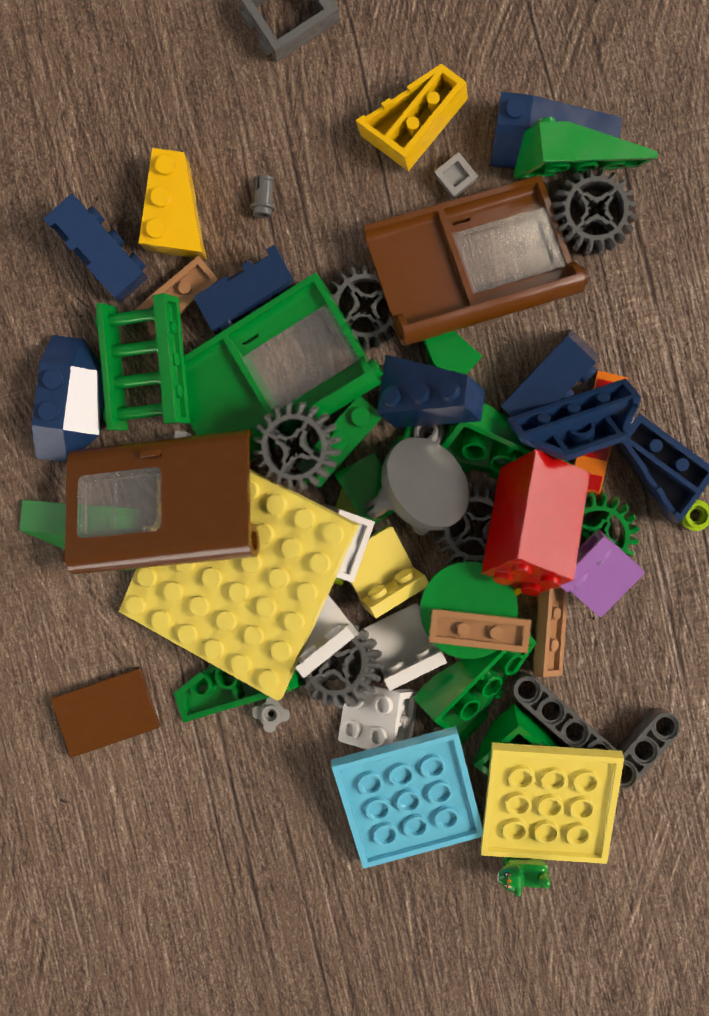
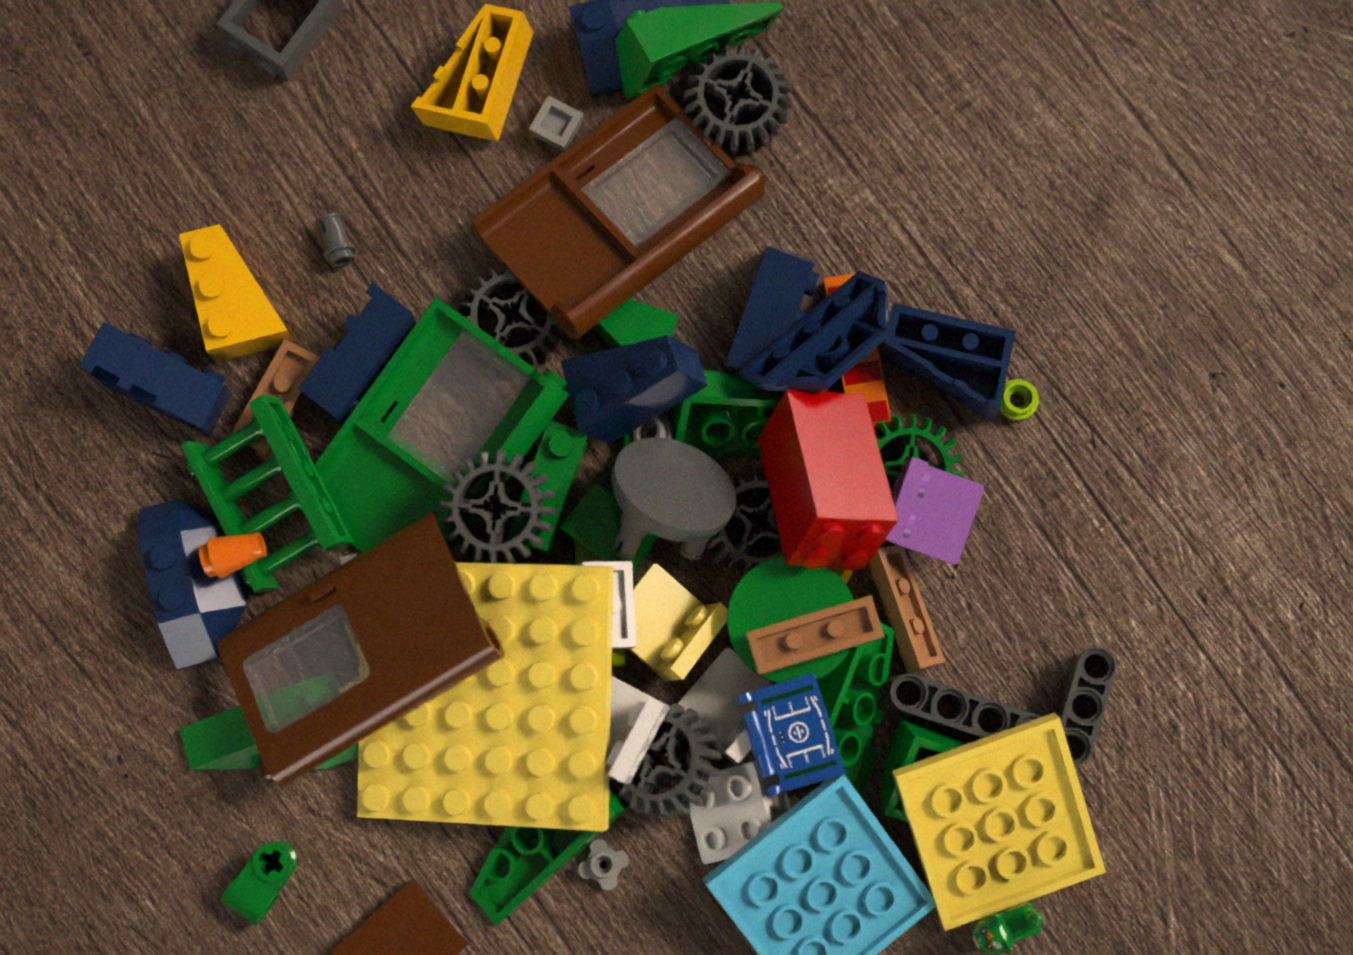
camera: 30 degrees left, 10 degrees down
(35, 628) = (256, 887): none -> green piece
(99, 397) = (230, 553): none -> orange cone
(434, 689) = (792, 734): none -> blue piece

